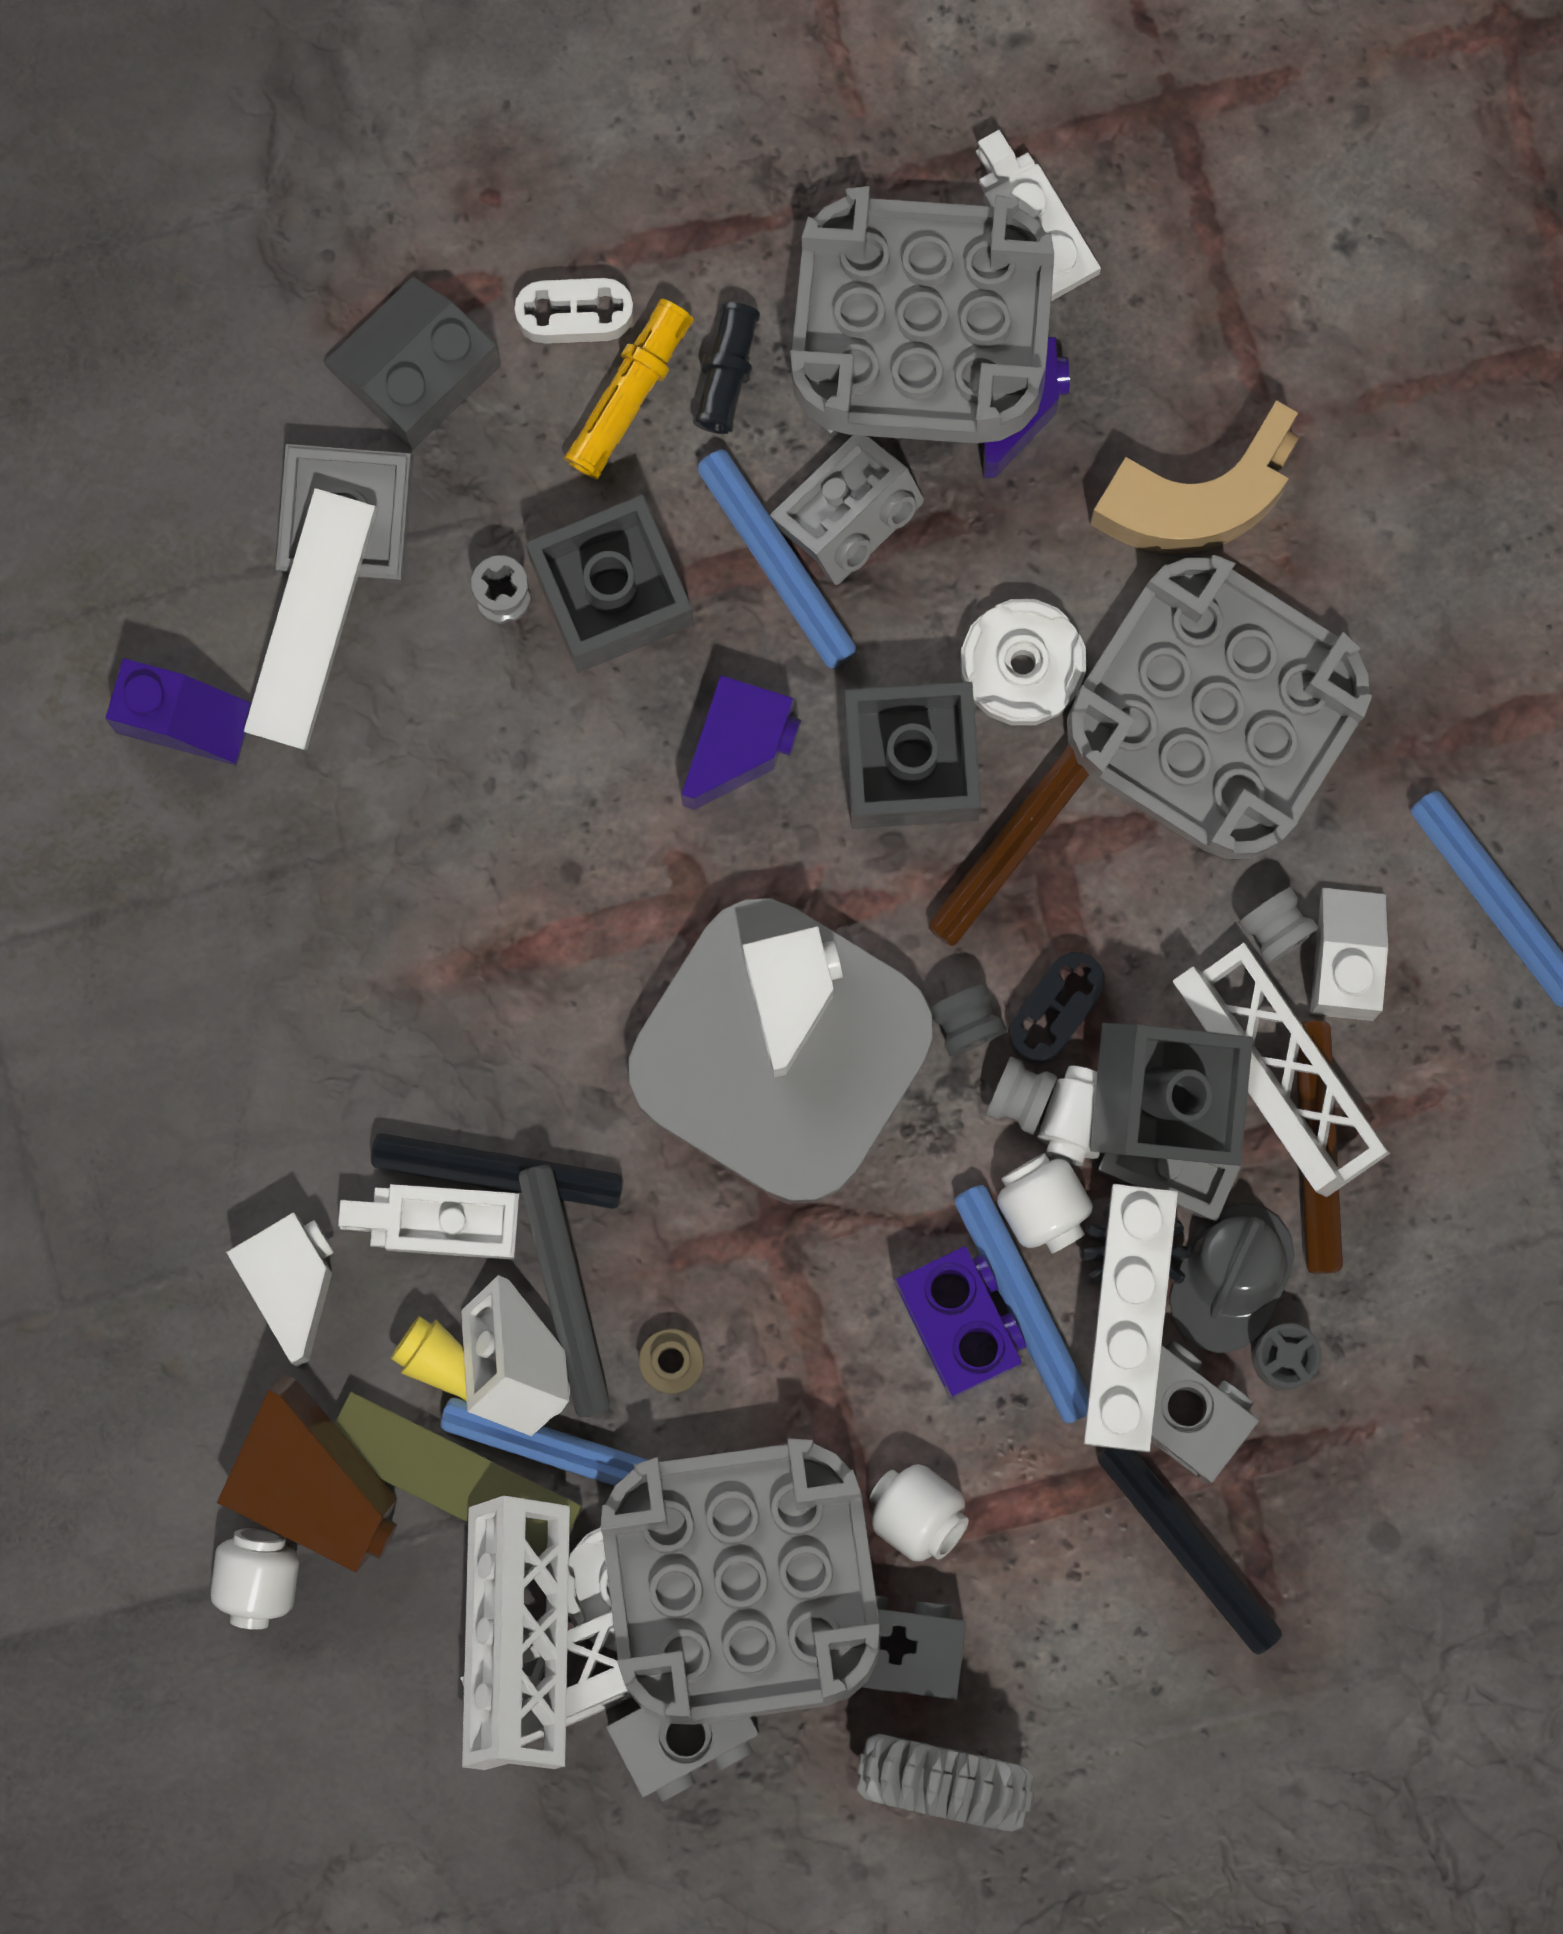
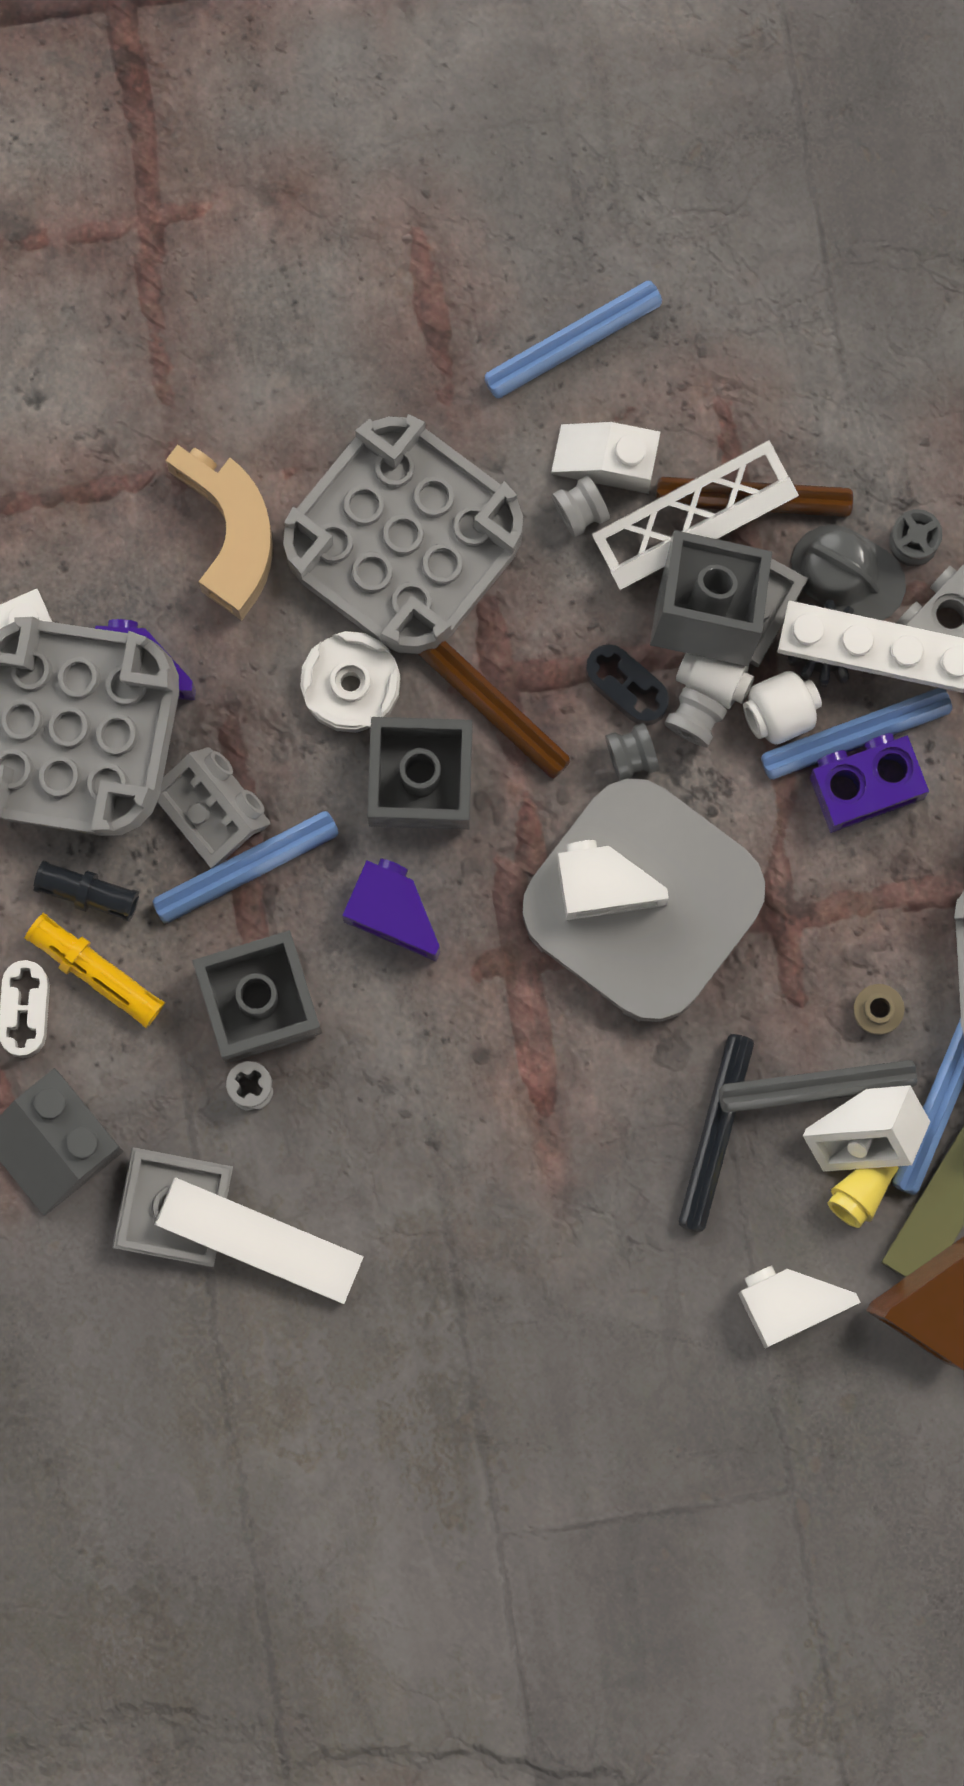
camera: 85 degrees left, 0 degrees up
(177, 712) = (324, 1353): dark purple slope -> none
(437, 1221) = (753, 1182): white hinge -> none

